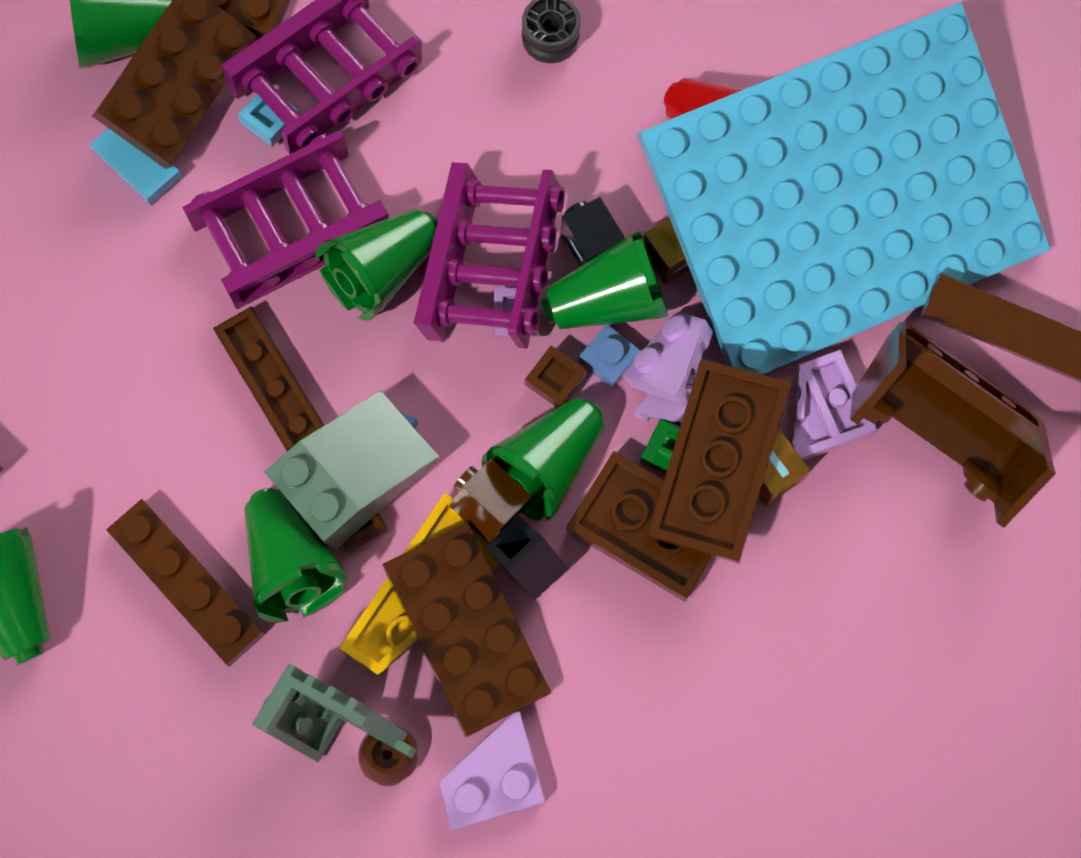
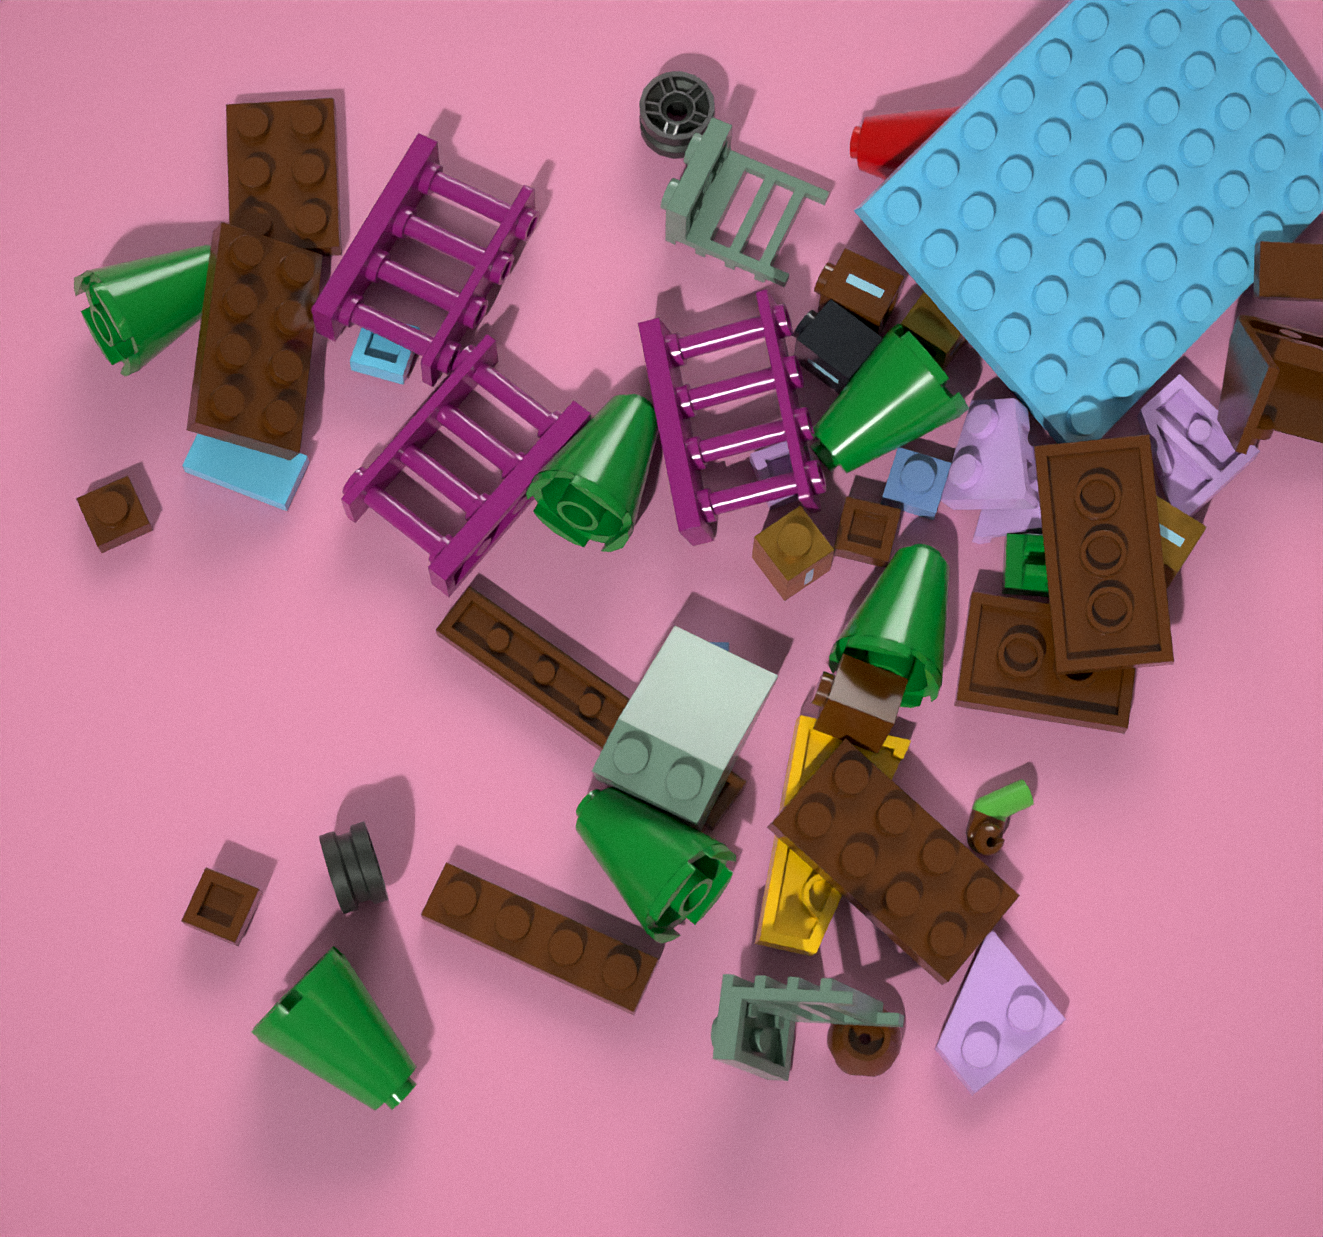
camera: 20 degrees left, 0 degrees up
(29, 161) = (114, 514): none -> reddish brown plate
(70, 475) = (353, 867): none -> pearl dark grey wheel
(492, 371) = (792, 553): none -> pearl gold brick
(526, 557) = (928, 752): black brick -> none
(549, 87) = (706, 191): none -> sand green plate
(556, 623) = (990, 813): none -> arm
(628, 200) = (860, 288): none -> reddish brown brick

